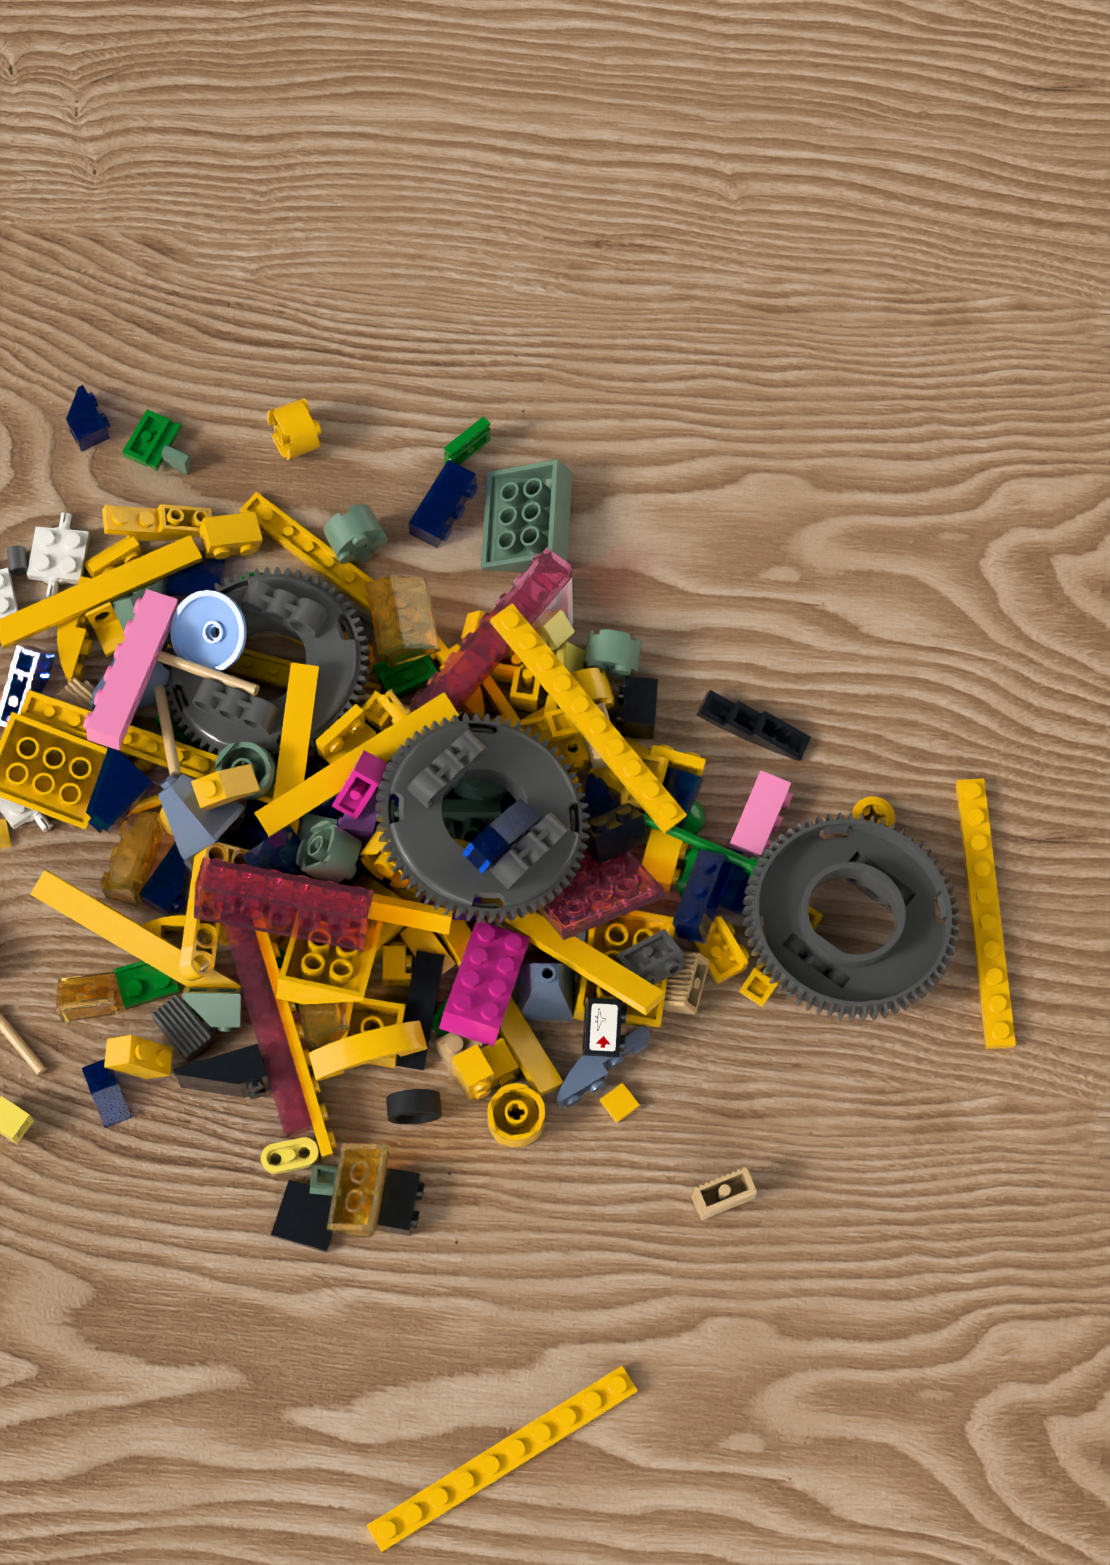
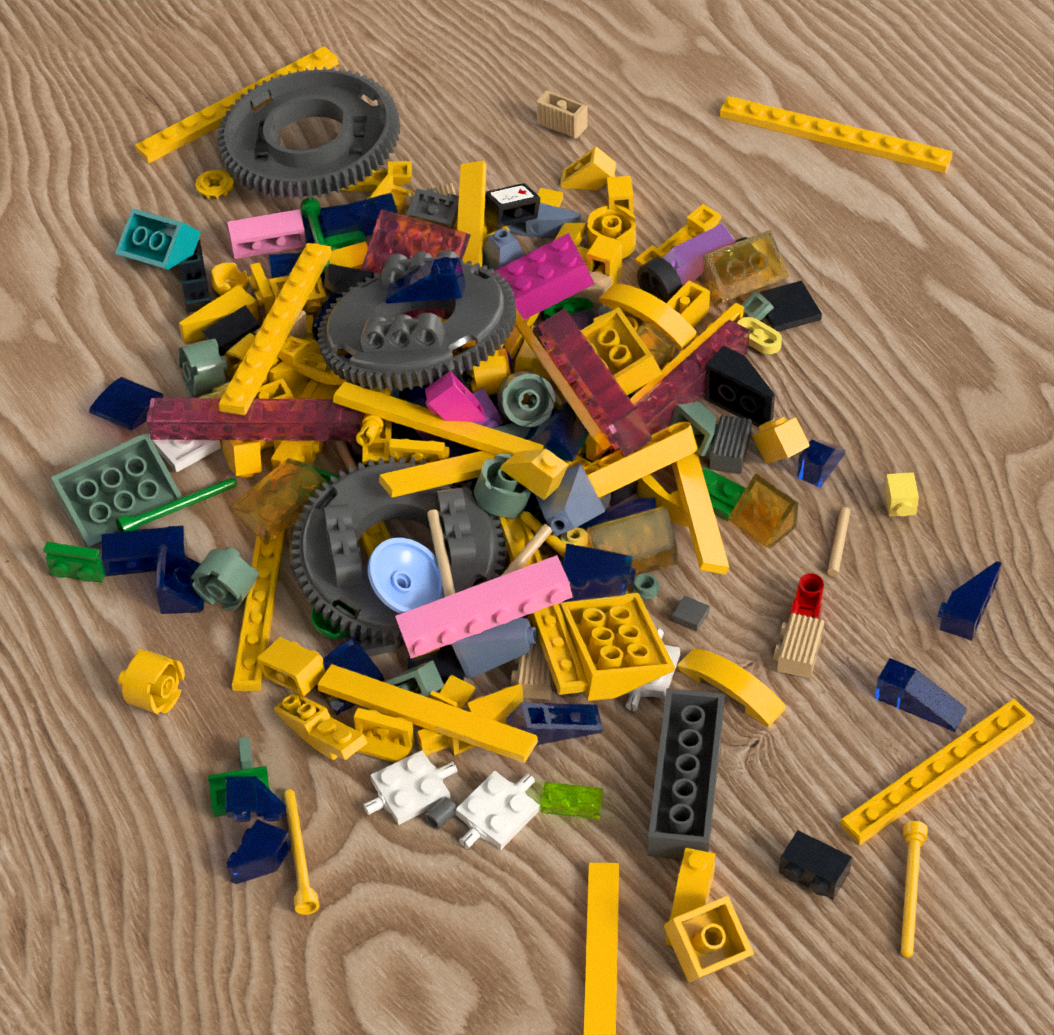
camera: 120 degrees left, 20 degrees down
(24, 429) = (305, 899): none -> yellow piece
(42, 861) = (690, 613): none -> dark grey tile
(94, 843) = (646, 586): none -> sand green plate
(123, 432) = (252, 798): none -> clear blue slope
(363, 1104) = (691, 302): none -> yellow brick
(390, 506) = (174, 583): none -> clear blue slope
(415, 1156) = (688, 256): none -> medium lavender slope
(463, 1174) = (697, 223): none -> yellow slope
(480, 507) = (132, 523): none -> green piece
(570, 1169) = (620, 192): none -> yellow brick
(623, 1163) = (588, 171): none -> yellow slope
(628, 583) = (124, 403): none -> clear blue slope
(676, 720) = (234, 299): none -> yellow slope
(717, 745) = (227, 276): none -> yellow hair
(811, 711) = (157, 240): none -> teal slope

